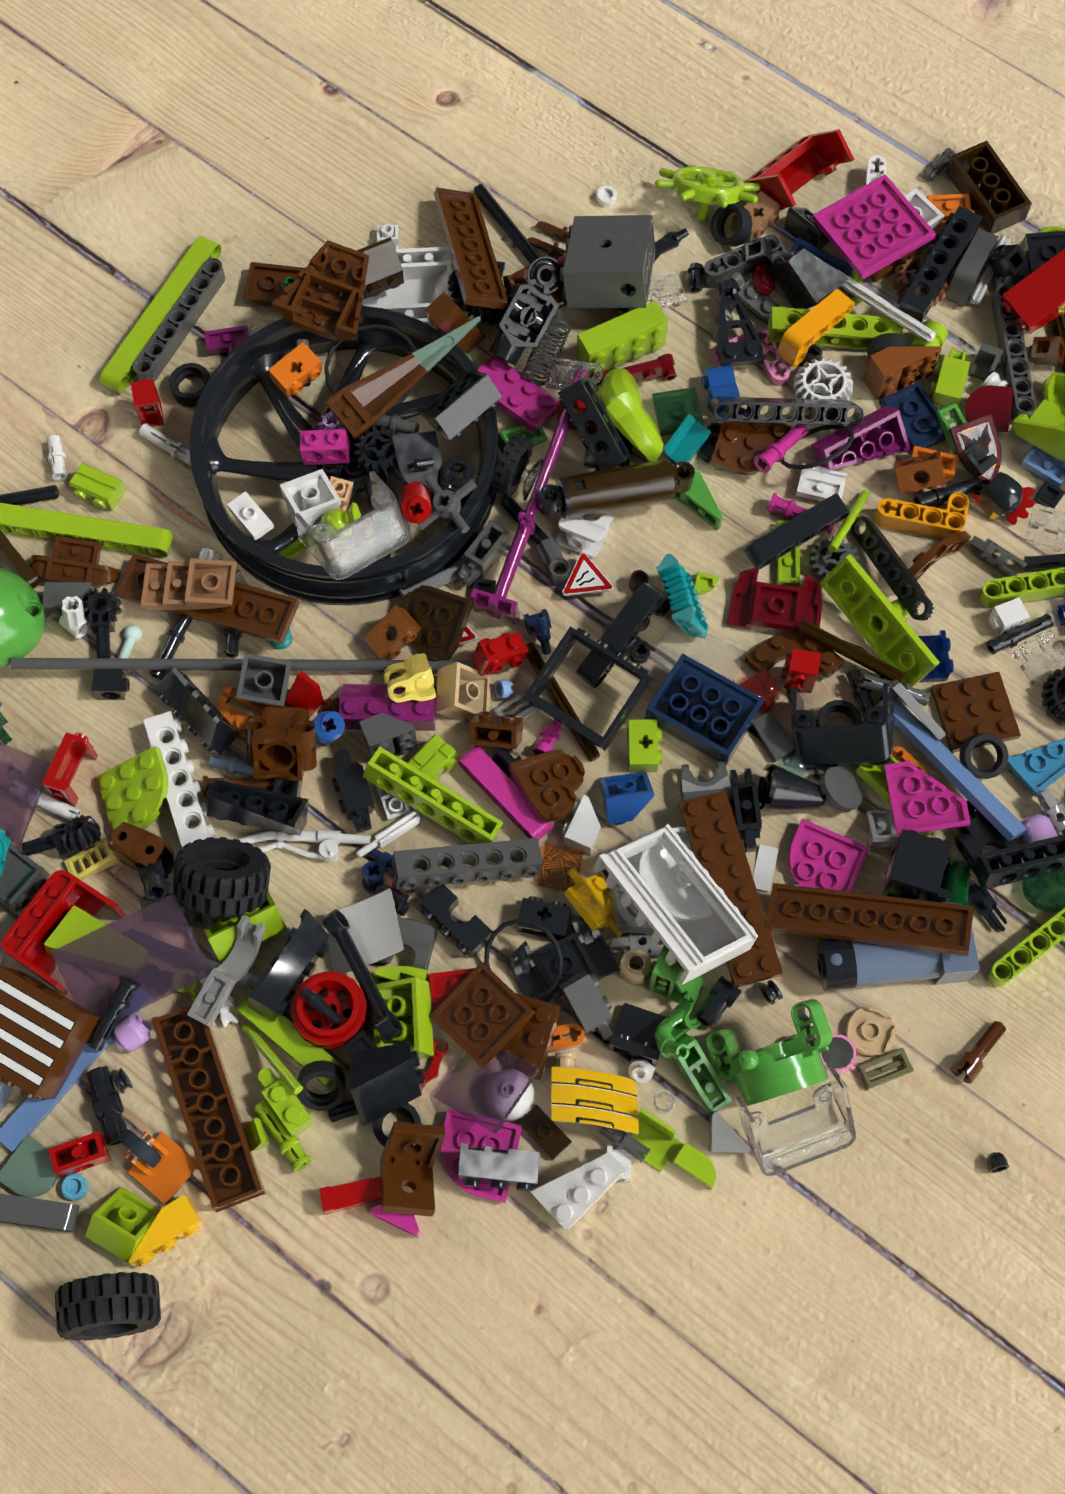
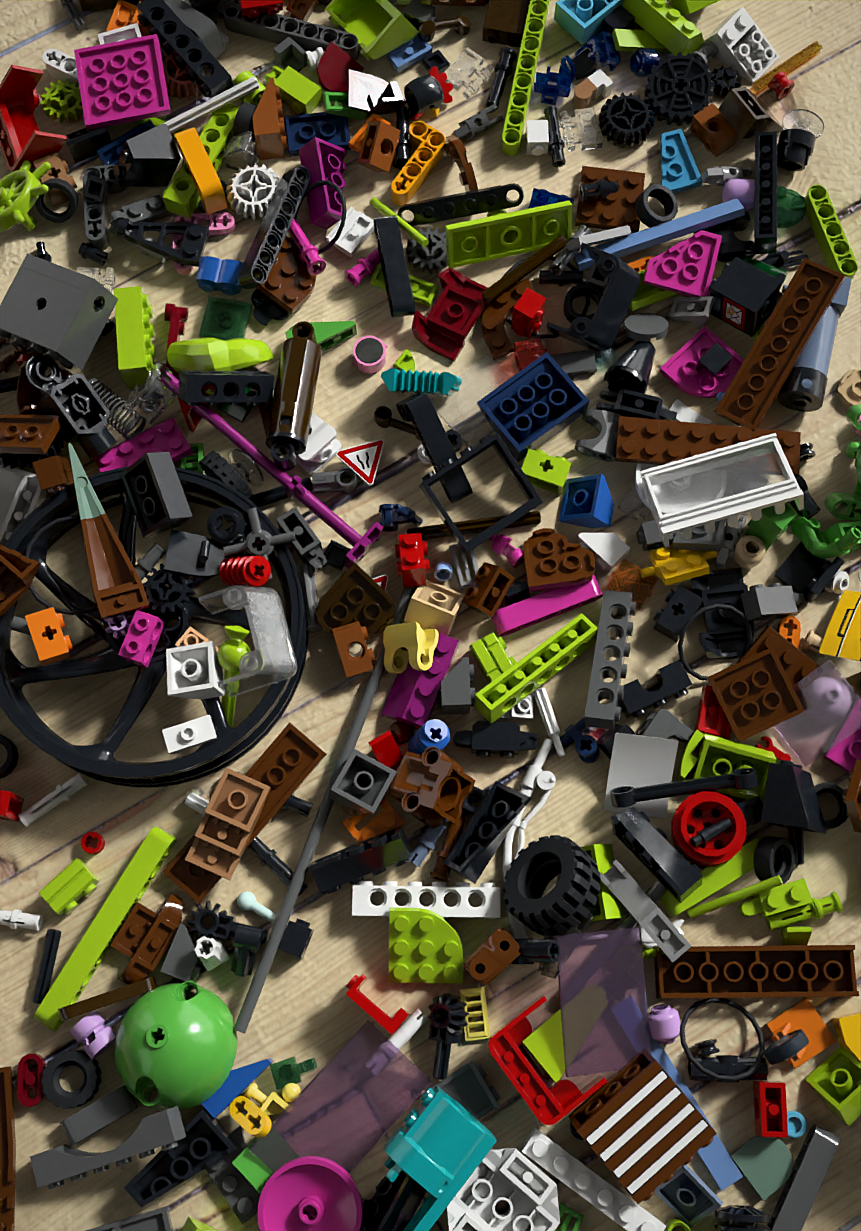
camera: 70 degrees left, 5 degrees up
(89, 643) = (246, 944): none -> black piece
(92, 1094) = (697, 1064): none -> black piece
(117, 1003) = (639, 1025): black pin -> none
(143, 498) = (90, 850): none -> red bush
(686, 440) = (264, 322): teal panel -> none
(698, 546) = (369, 354): none -> piece
(763, 280) = (125, 197): dark red plate -> none
(827, 863) = (714, 360): none -> black panel
(838, 186) = (62, 101): none -> lime gear
(856, 357) = (241, 151): none -> clear slope
(973, 692) = (601, 187): none -> black piece

